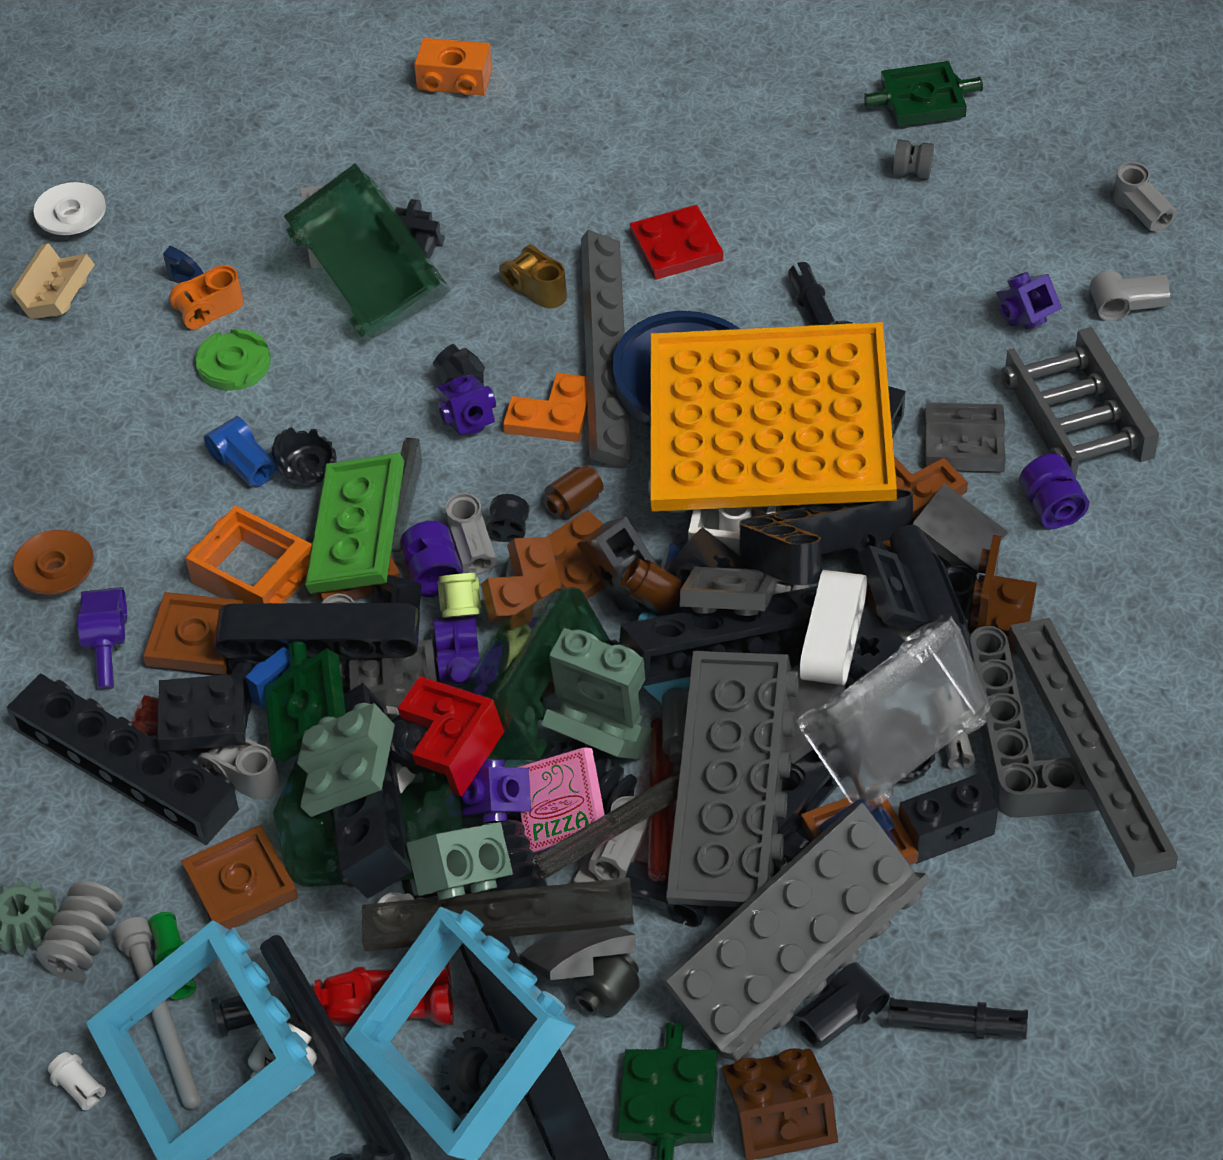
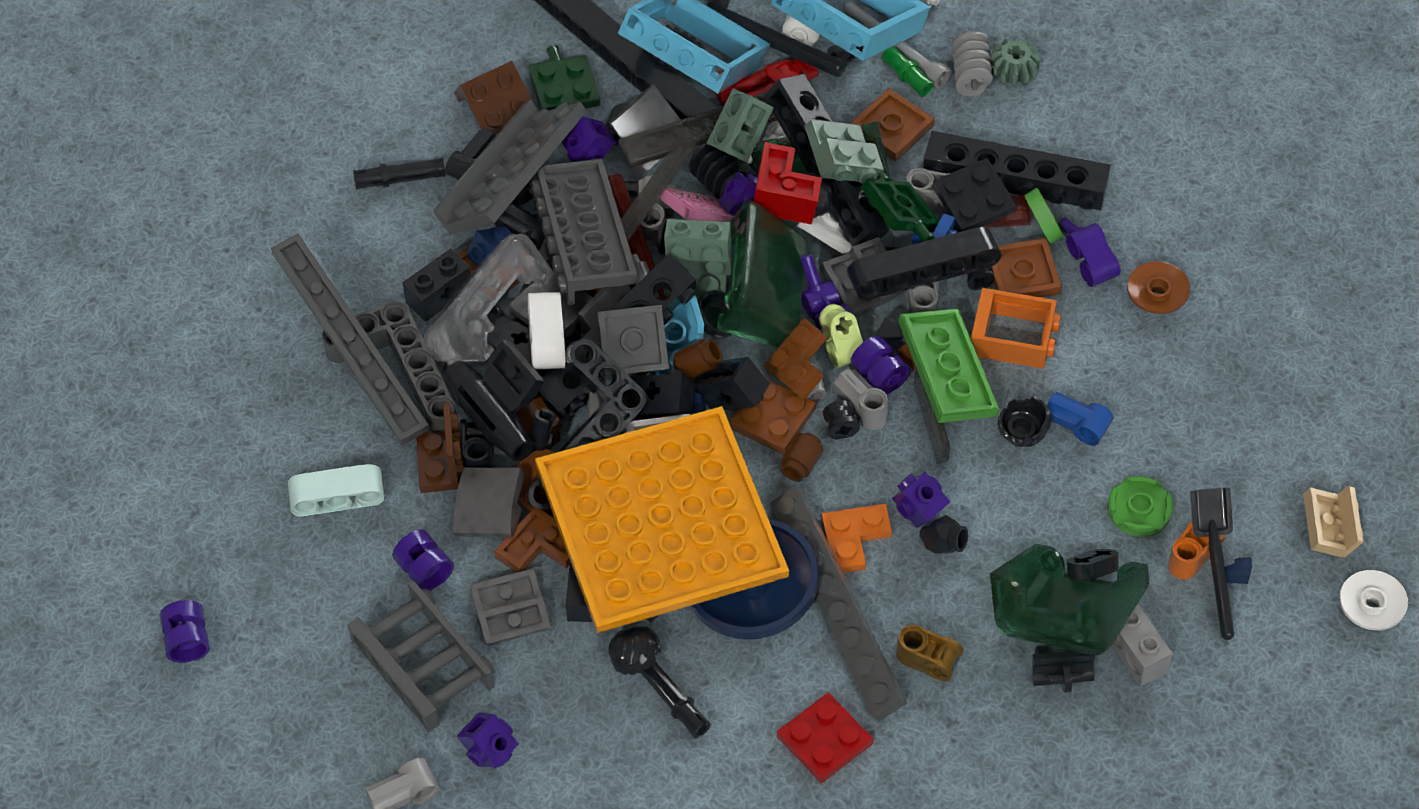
camera: 160 degrees right, 5 degrees up
(127, 683) = (1044, 216): none -> bright green beam
(187, 285) = (1212, 518): none -> black piece
(318, 292) = (1092, 564): none -> black beam
(659, 954) = (588, 140): none -> dark purple brick
(1142, 603) = (335, 490): none -> light aqua beam

